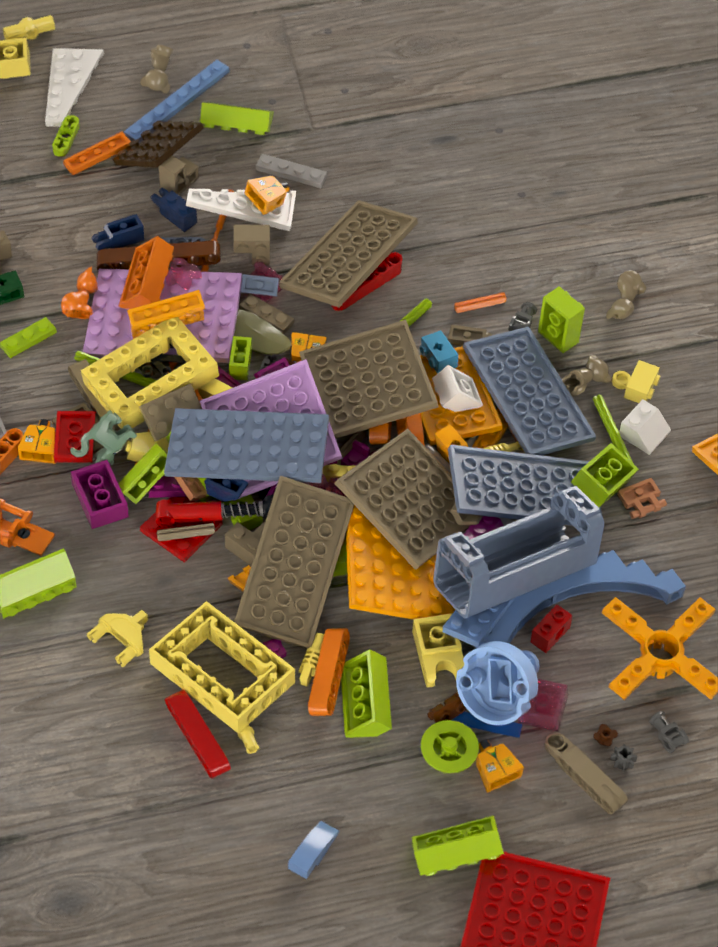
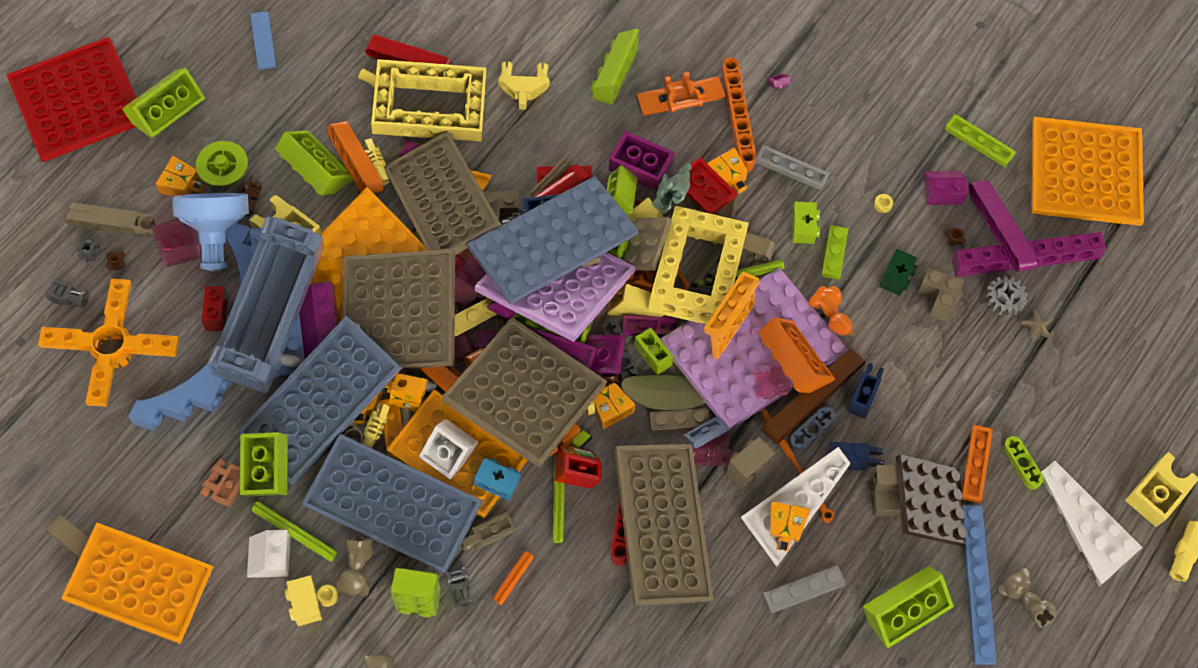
camera: 140 degrees right, 10 degrees up
(27, 367) = (805, 222): none -> lime brick
(370, 317) = (577, 467): none -> red slope

